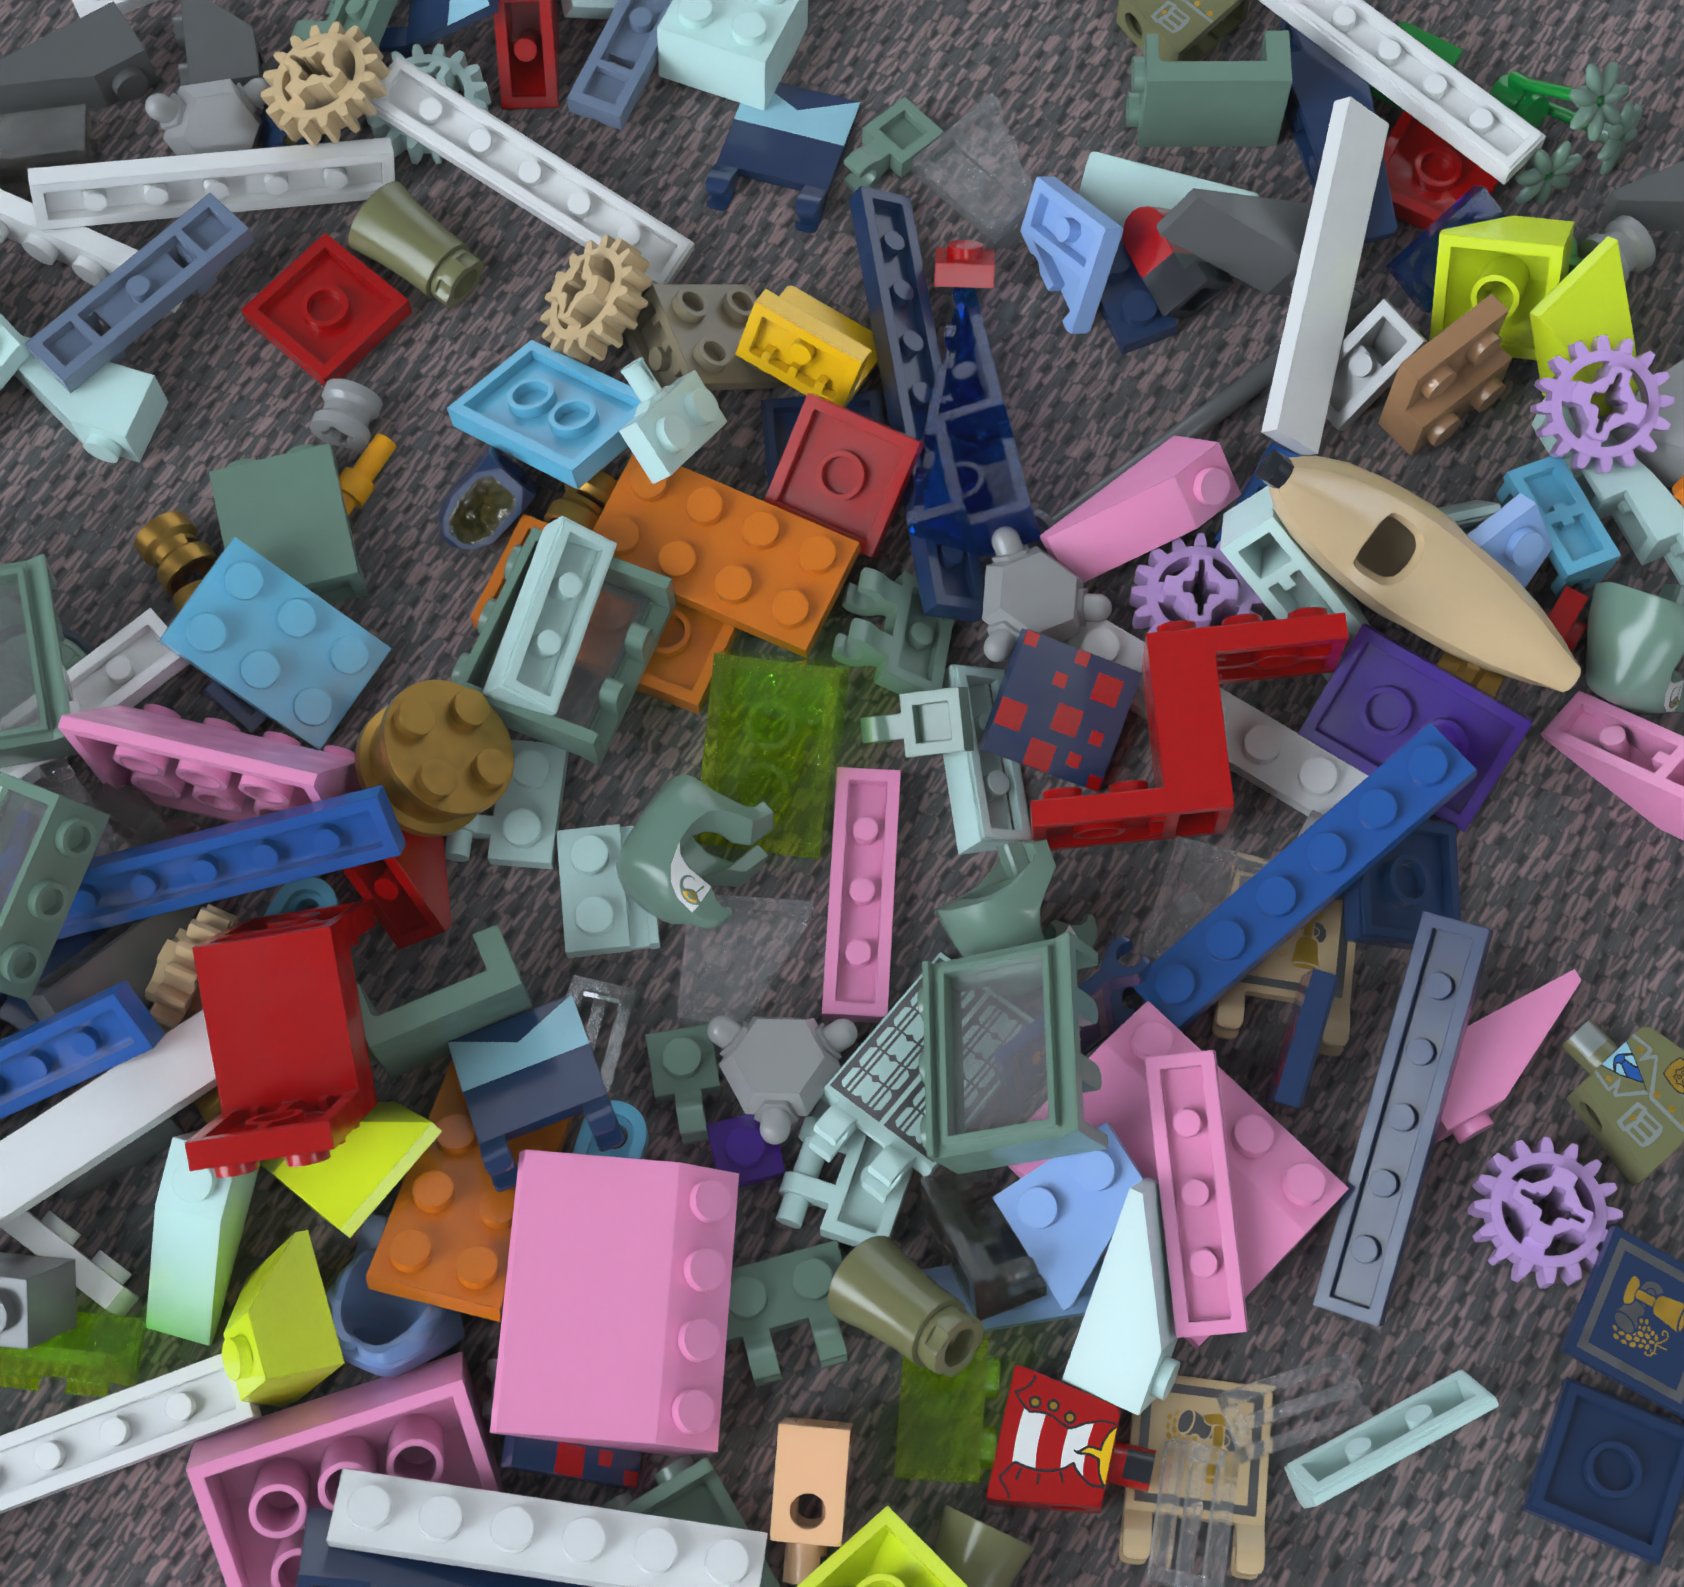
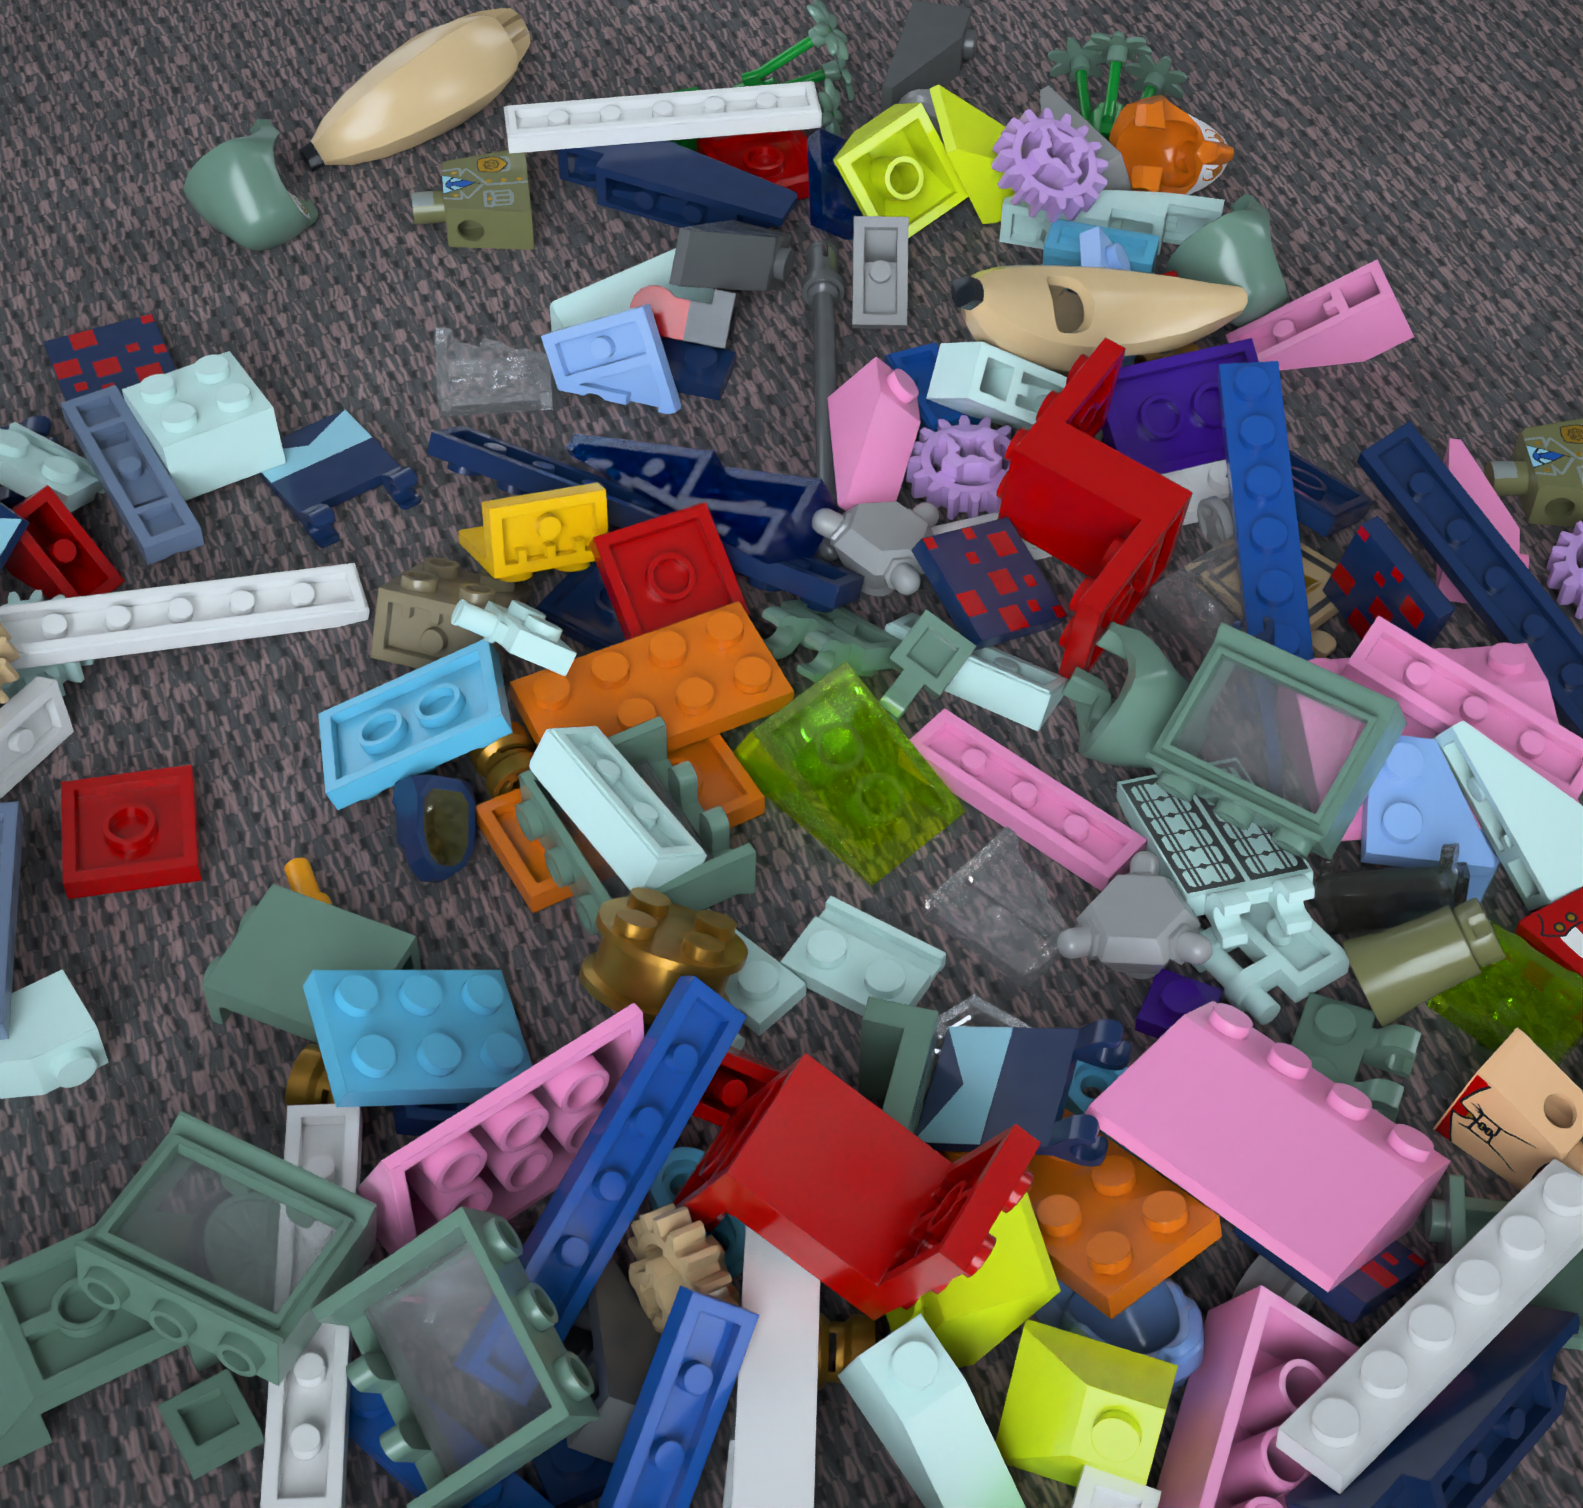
camera: 55 degrees left, 20 degrees down
(173, 548) = (239, 1073): pearl gold wheel -> none
(346, 414) = (244, 870): light grey wheel -> none
(414, 245) = (151, 730): olive plant -> none
(596, 299) = (341, 638): tan gear -> none
(670, 871) = (888, 871): sand green piece -> none
(683, 1071) = (1074, 1001): sand green plate -> none
(891, 143) = (406, 404): sand green plate -> none
(964, 265) = (558, 426): plate -> none
(1210, 99) = (586, 219): sand green panel -> none
(1325, 278) = (802, 240): white tile -> none
(1448, 379) = (940, 234): medium nougat plate -> none

